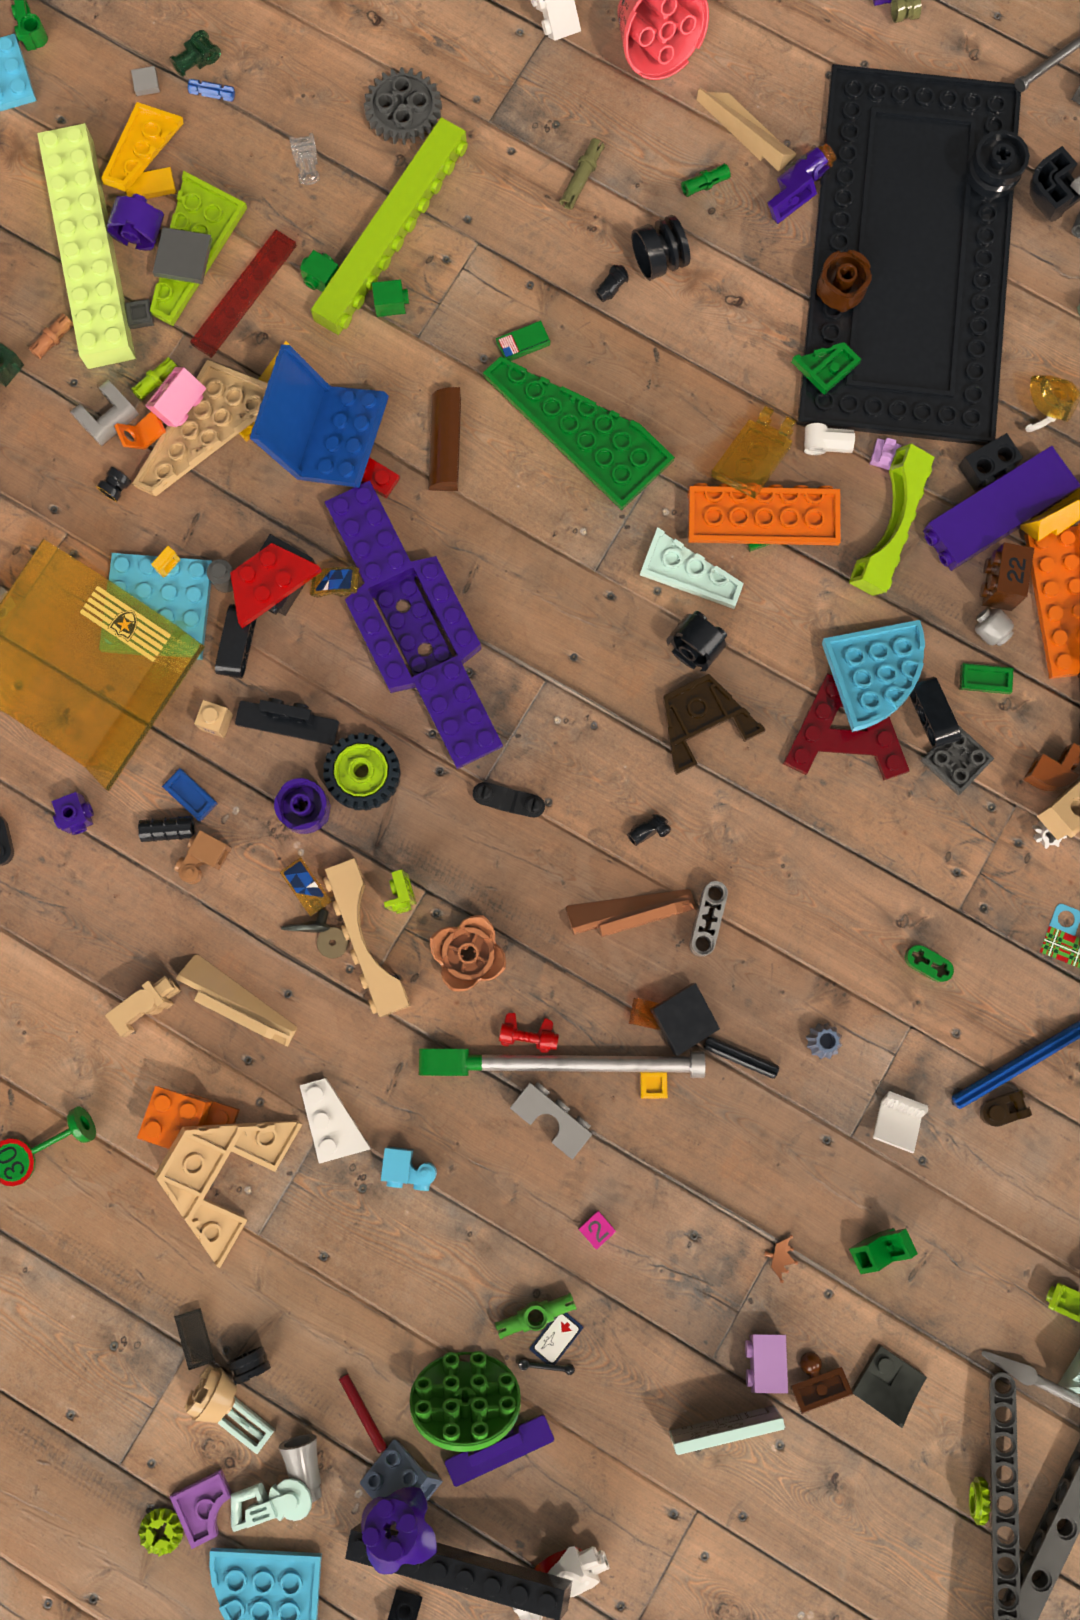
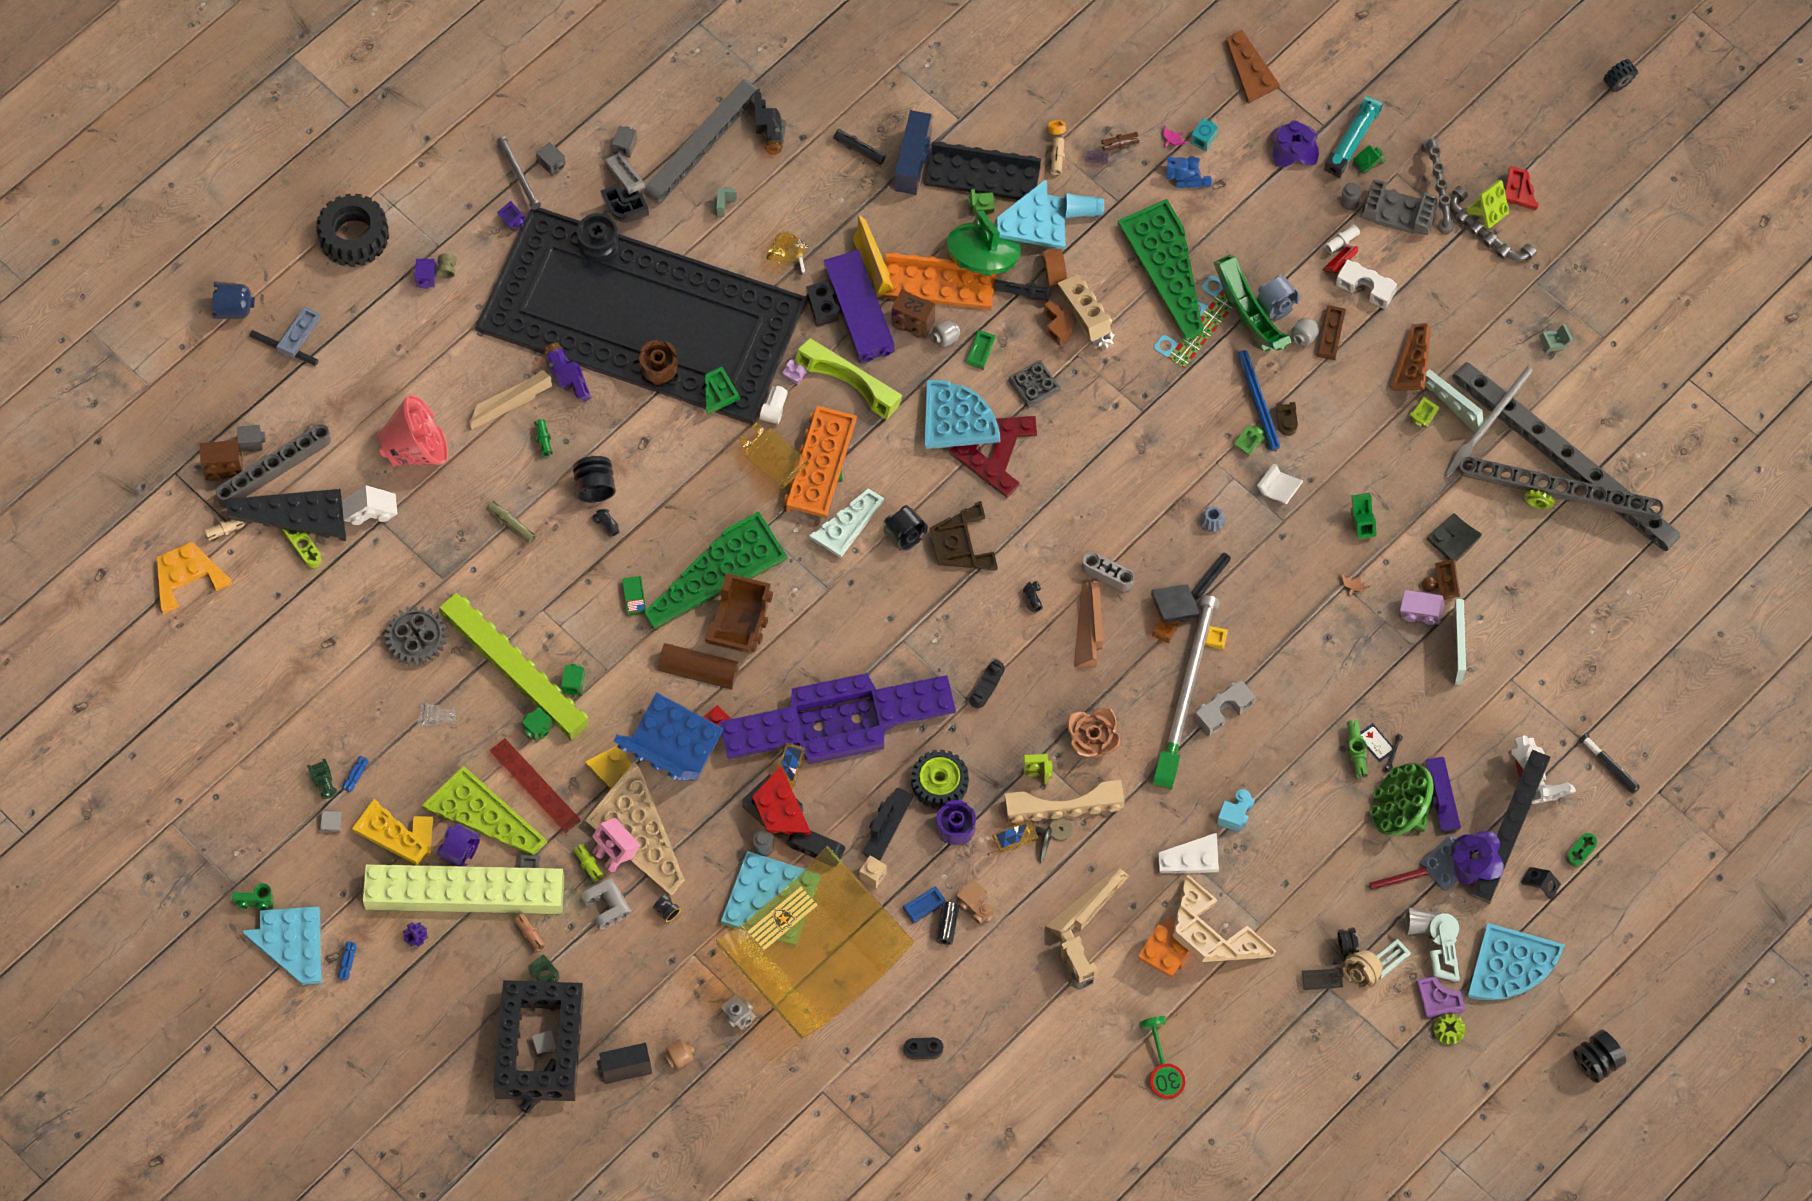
camera: 75 degrees left, 15 degrees down
(17, 207) = (415, 934): none -> dark purple gear
(72, 813) = (919, 984): dark purple brick -> none
(144, 432) = (630, 876): orange bracket -> none
(165, 561) = (744, 876): yellow tile -> none
(182, 255) = (498, 816): dark grey tile -> none
(514, 469) = (740, 614): none -> reddish brown cylinder
(544, 1039) = (1167, 701): red piece -> none
(597, 1230) = (1308, 697): dark pink tile -> none
(931, 958) = (1172, 436): green beam -> none
(935, 712) = (999, 386): black beam -> none
(957, 1066) = (1250, 439): none -> bright green bracket
(998, 63) = (511, 215): none -> dark purple bracket

